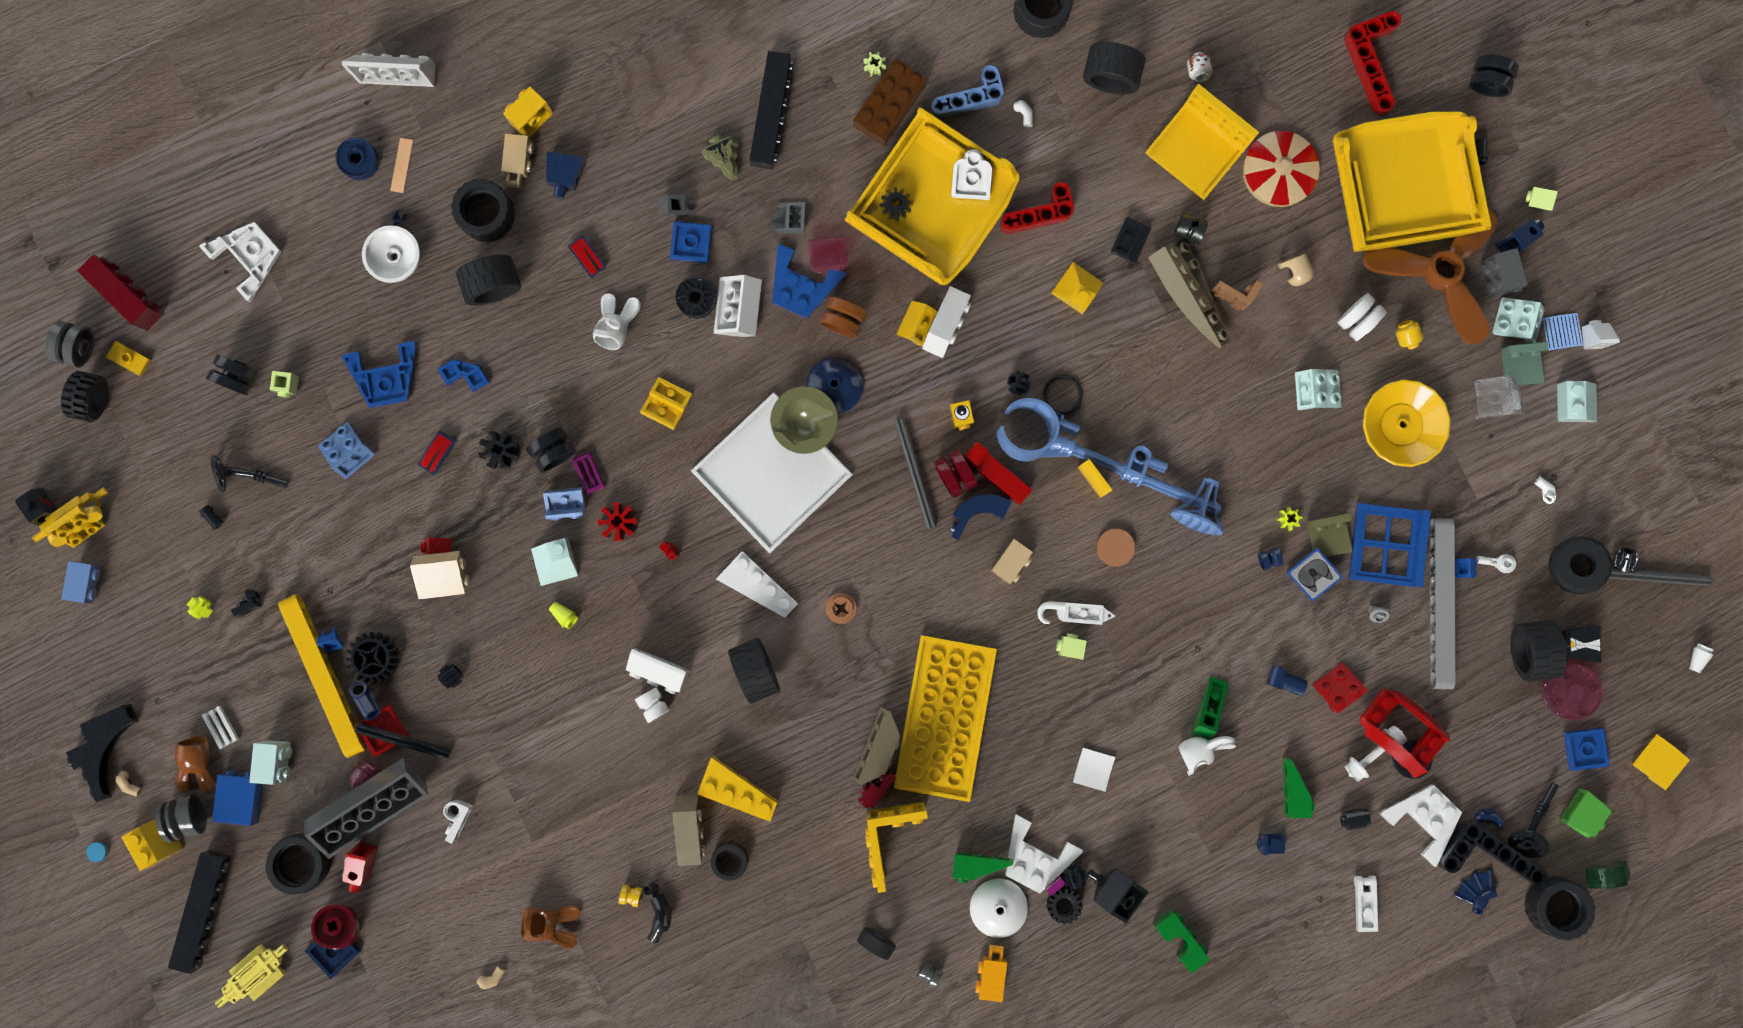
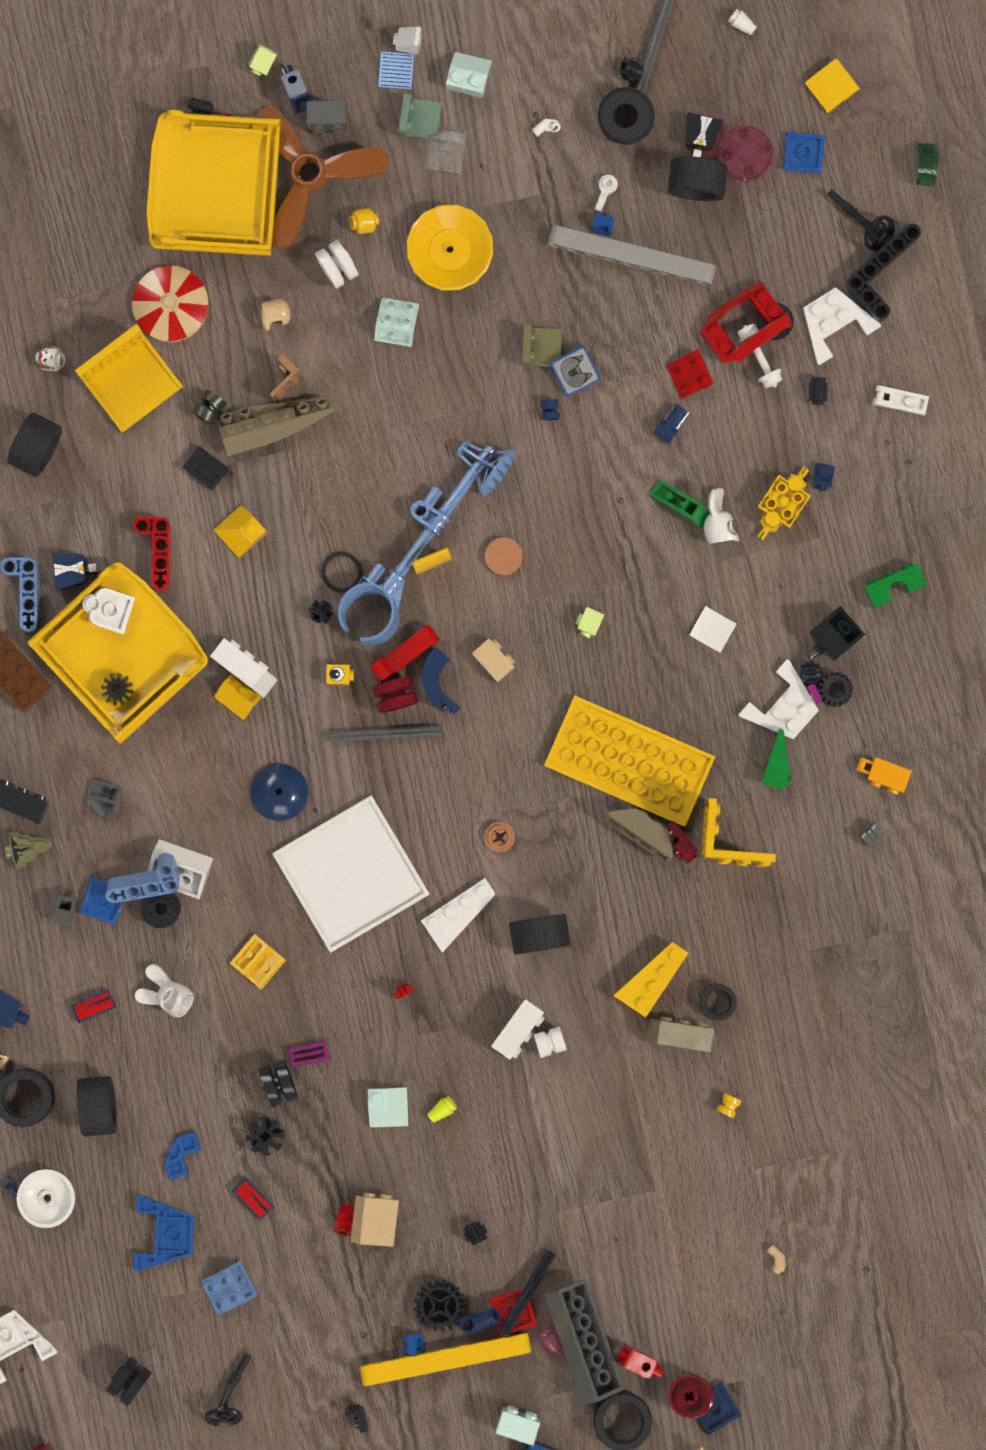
camera: 70 degrees left, 0 degrees up
(211, 517) = (263, 1435): black pin -> none
(284, 383) = (149, 1332): yellowish green brick -> none
(454, 830) = (625, 1262): white plate -> none
(540, 925) = (736, 1198): dark orange piece -> none
(564, 503) = (333, 1083): medium blue bracket -> none
(622, 526) = (368, 1031): red gear -> none
(662, 911) = (751, 1078): black arm -> none
(714, 277) = (145, 884): none -> medium blue beam
(796, 291) = (179, 805): blue wing -> none
(804, 420) = (308, 829): olive piece -> none
(827, 254) = (149, 768): clear pink bracket -> none
(842, 317) = (213, 766): dark orange wheel -> none
(876, 943) = (828, 878): black tyre -> none
(997, 894) = (811, 760): white dish -> none
(1000, 135) = (71, 570): none -> dark blue torso
(1027, 112) = (52, 539): white arm -> none
(1076, 612) = (557, 610): white plate -> none
(1236, 810) = (783, 502): none -> yellow piece
(1295, 518) = (514, 387): neon yellow gear -> none
(1296, 796) = (783, 441): green slope -> none
(1370, 60) = (83, 190): red beam -> none
(1378, 614) = (627, 318): light grey plate -> none
(1416, 548) = (572, 266): blue window -> none
(1477, 891) = (913, 291): dark blue arm -> none
(1489, 815) = (844, 262): dark blue arm -> none
(1494, 75) = (130, 76): black wheel -> none
(1519, 319) = (375, 110): light aqua bracket -> none
(1580, 918) = (959, 200): black tyre -> none
(1586, 814) = (865, 169): bright green torso -> none

